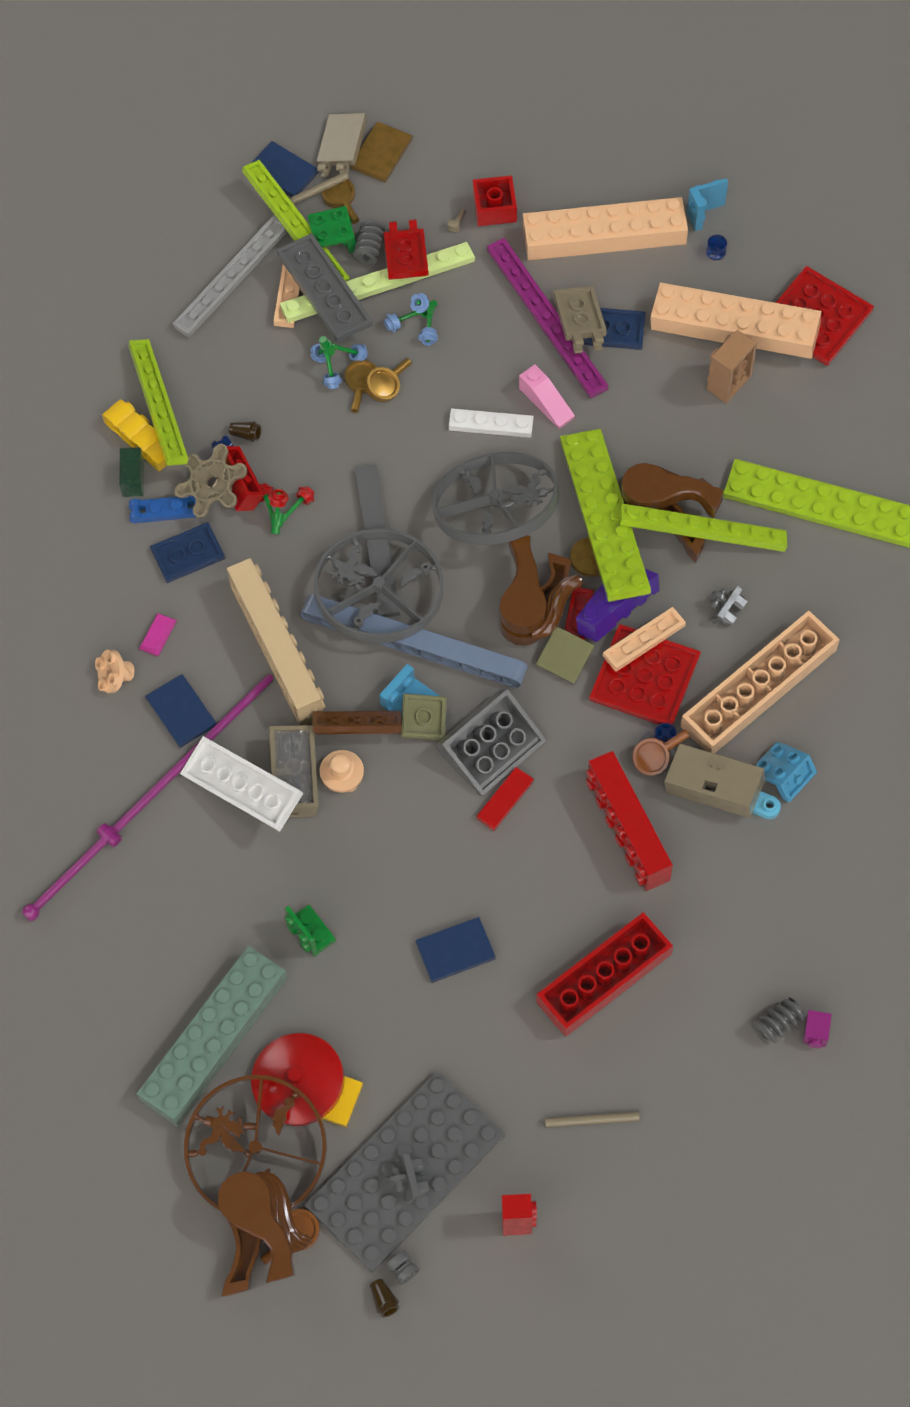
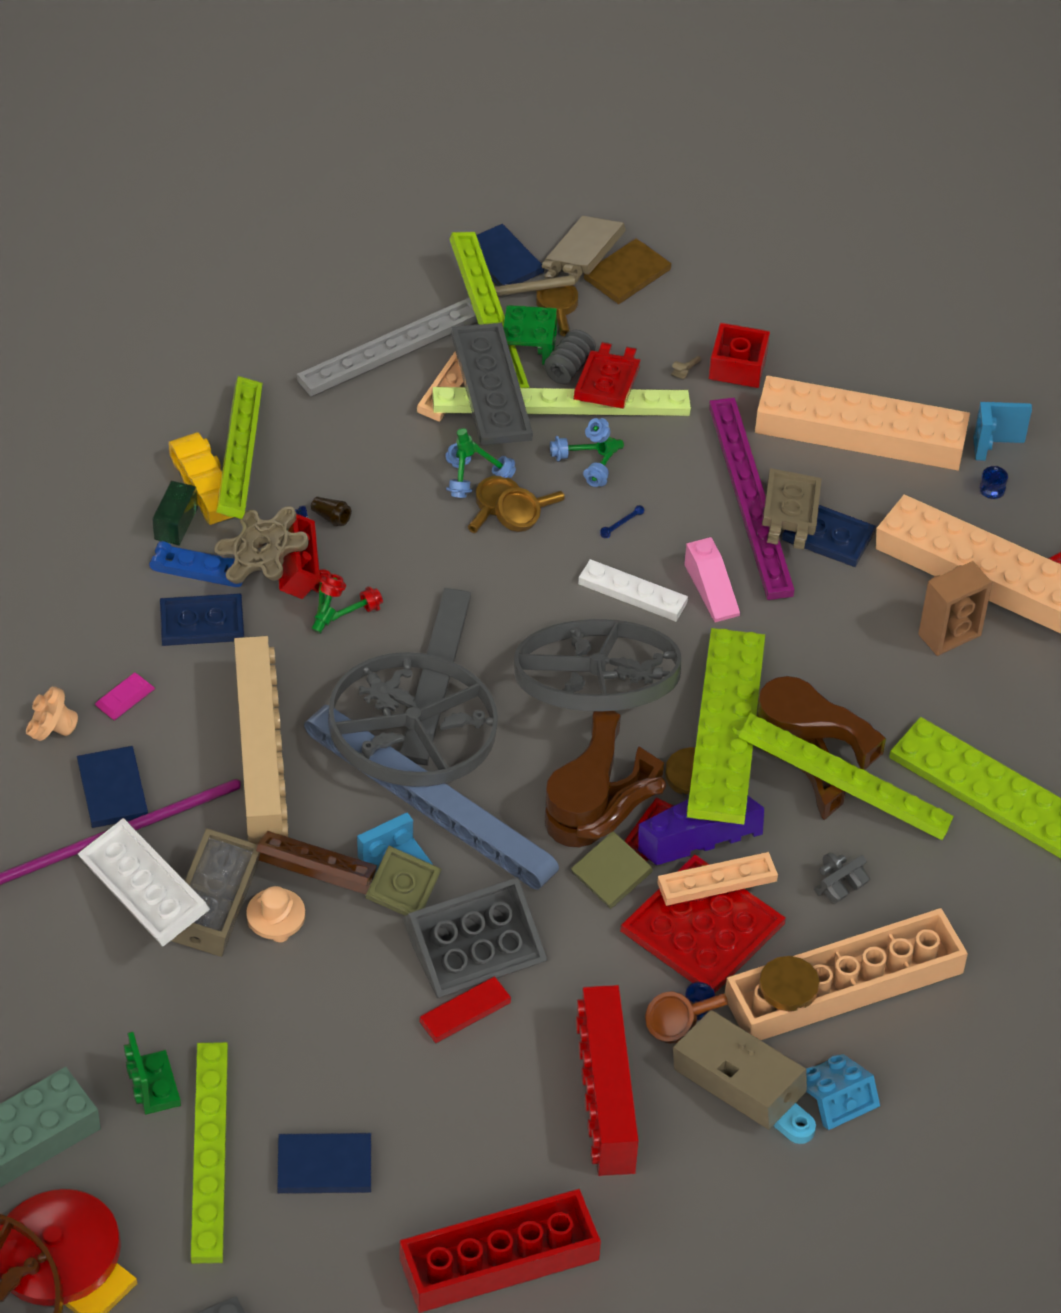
camera: 15 degrees right, 15 degrees down
(372, 970) = (209, 1153): none -> lime plate
(452, 380) = (605, 532): none -> clear blue hinge
(727, 706) = (789, 983): none -> pearl gold tile

